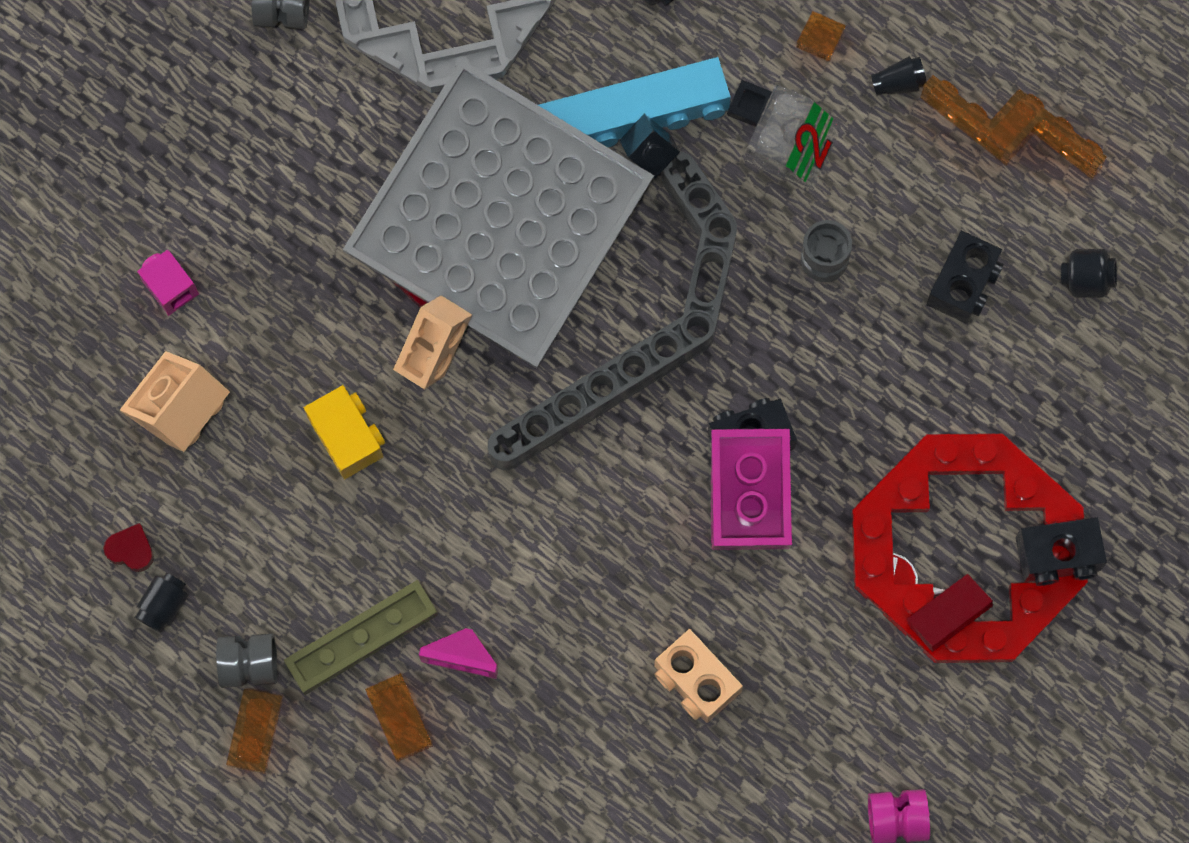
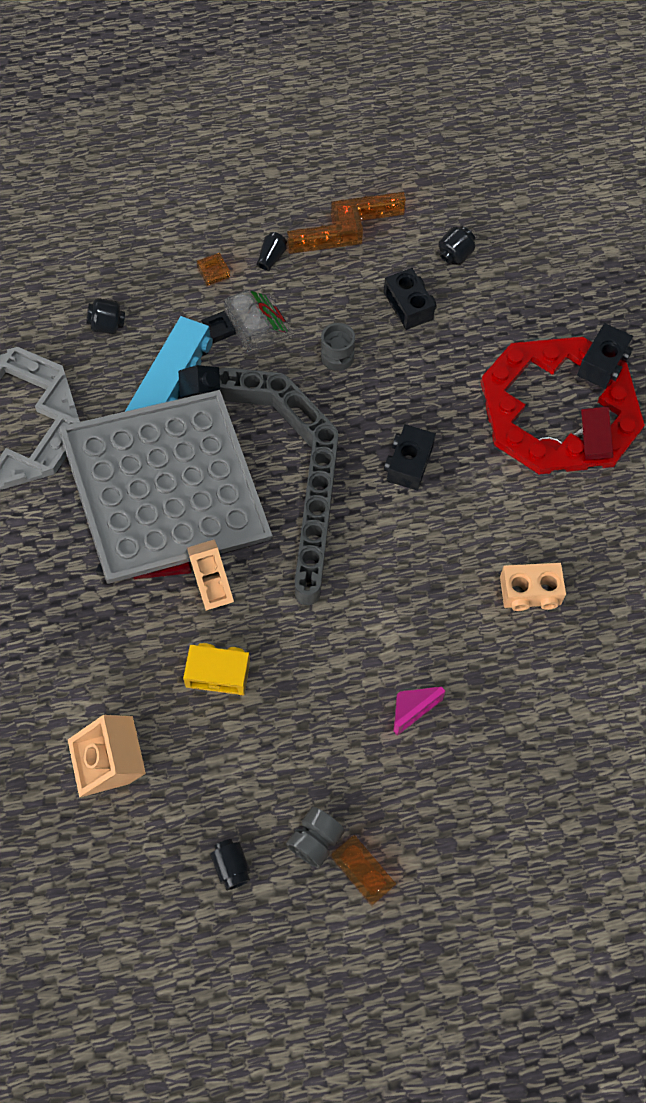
camera: 55 degrees left, 10 degrees down
(130, 548) = (176, 858): dark red tile -> none
(167, 281) = (26, 701): dark pink brick -> none
(360, 637) = (355, 758): olive plate -> none
(399, 717) = (425, 773): clear orange plate -> none
(750, 489) = (447, 475): dark pink slope -> none

